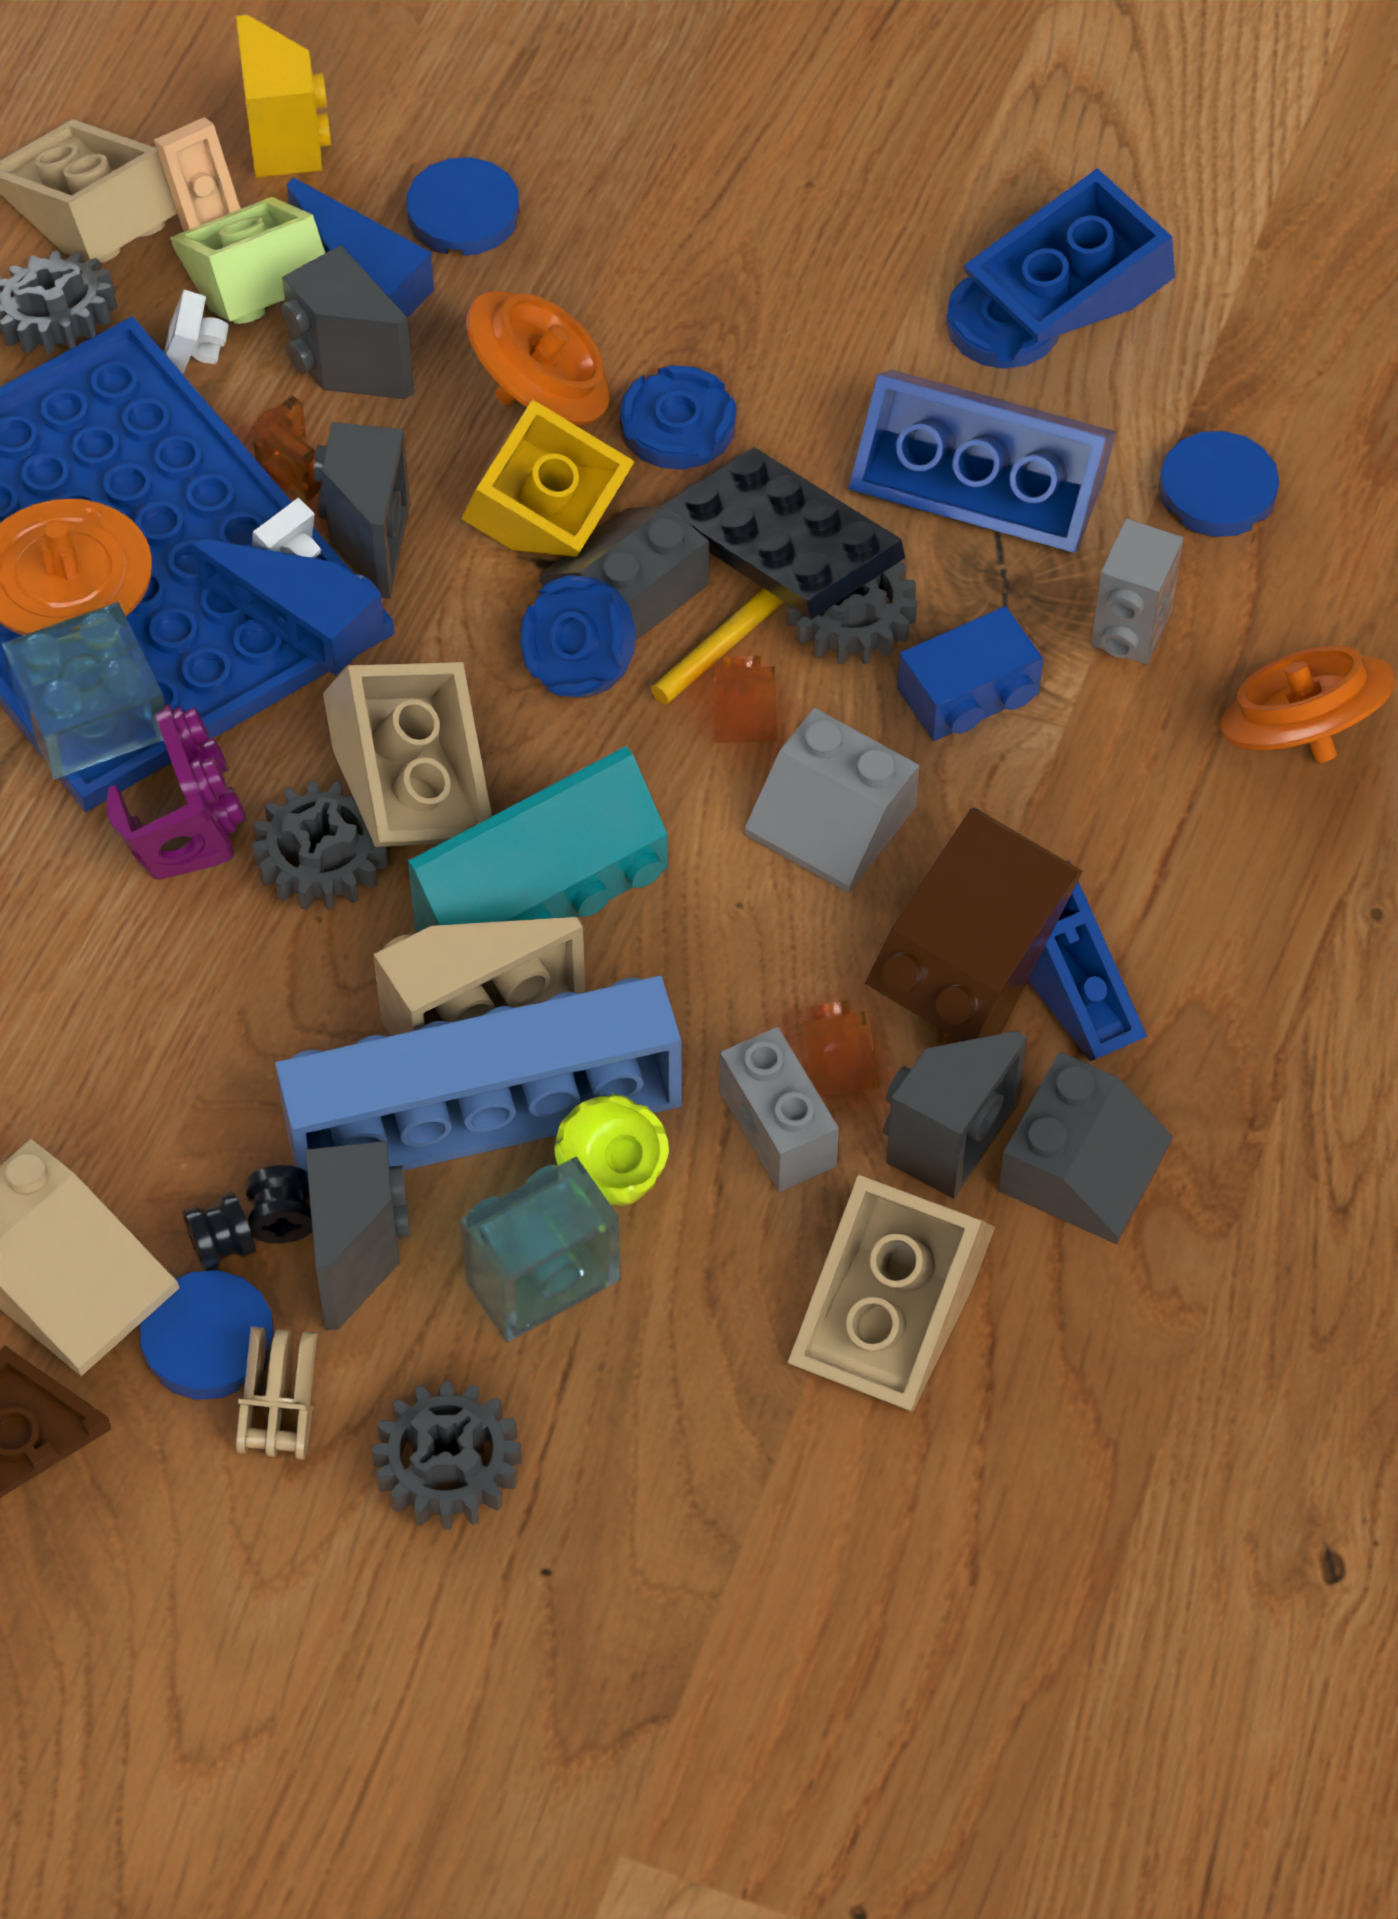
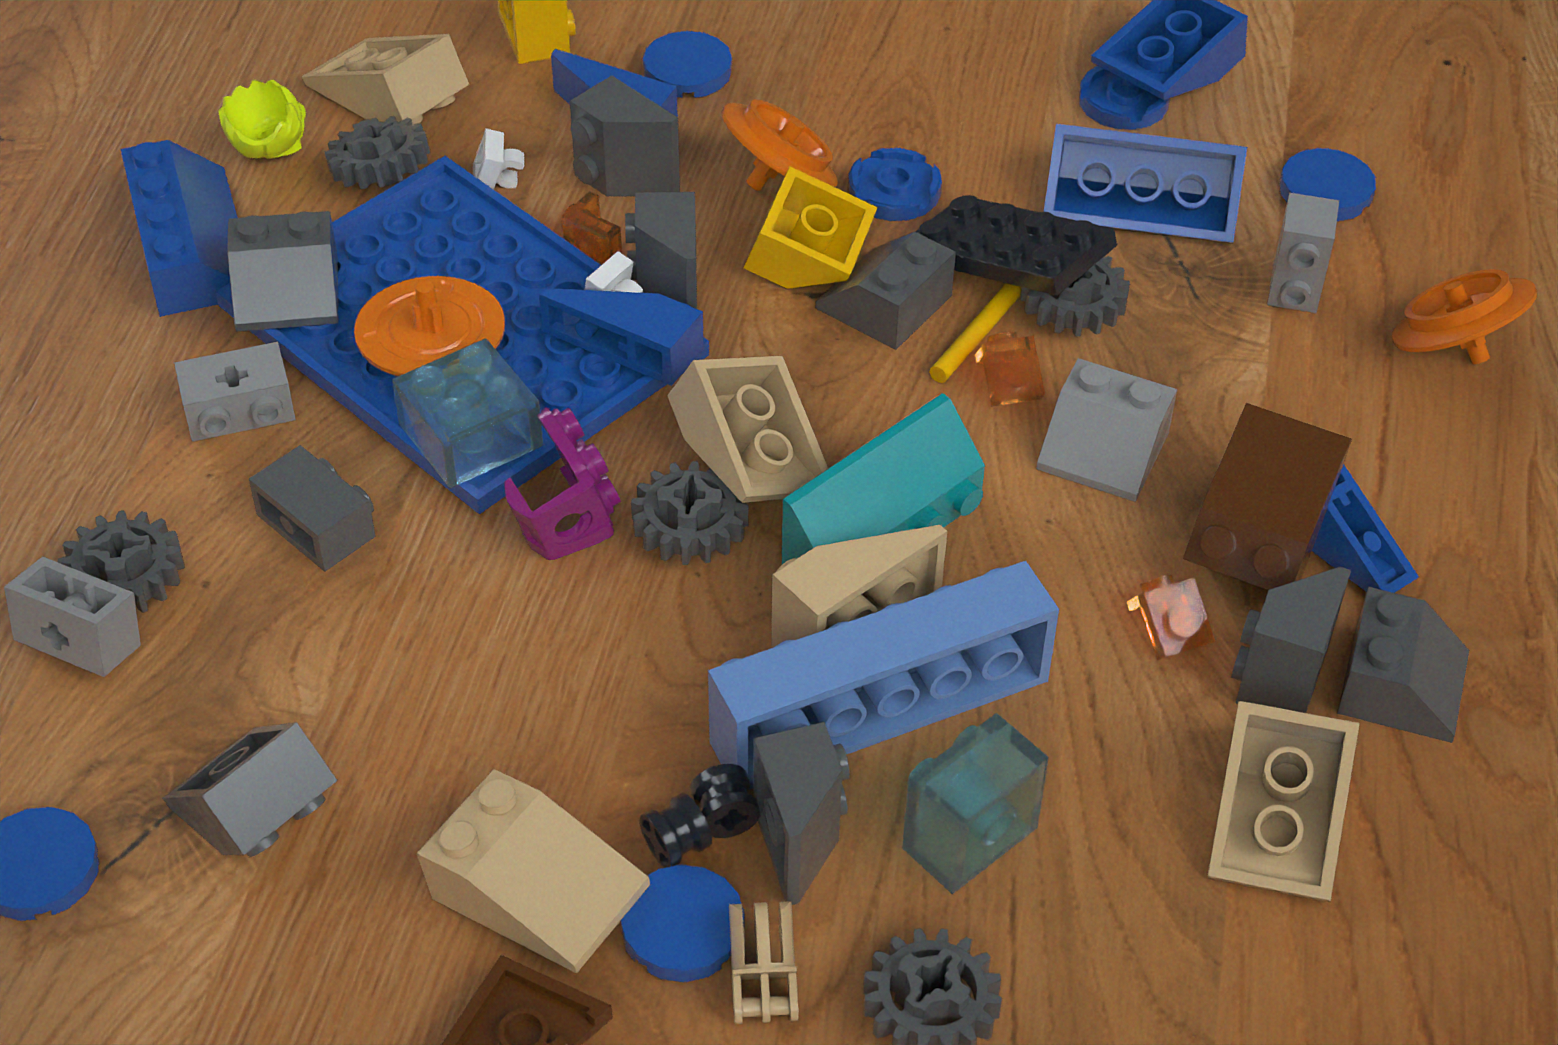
camera: 10 degrees left, 10 degrees down
(197, 173) = (481, 58): light nougat plate -> none
(246, 254) = (531, 107): yellowish green slope -> none
(578, 636) = (866, 333): blue tile -> none
(617, 1145) = (1018, 698): neon yellow hair -> none
(778, 1109) = (1139, 667): light grey brick -> none
(970, 674) = (1185, 329): blue brick -> none

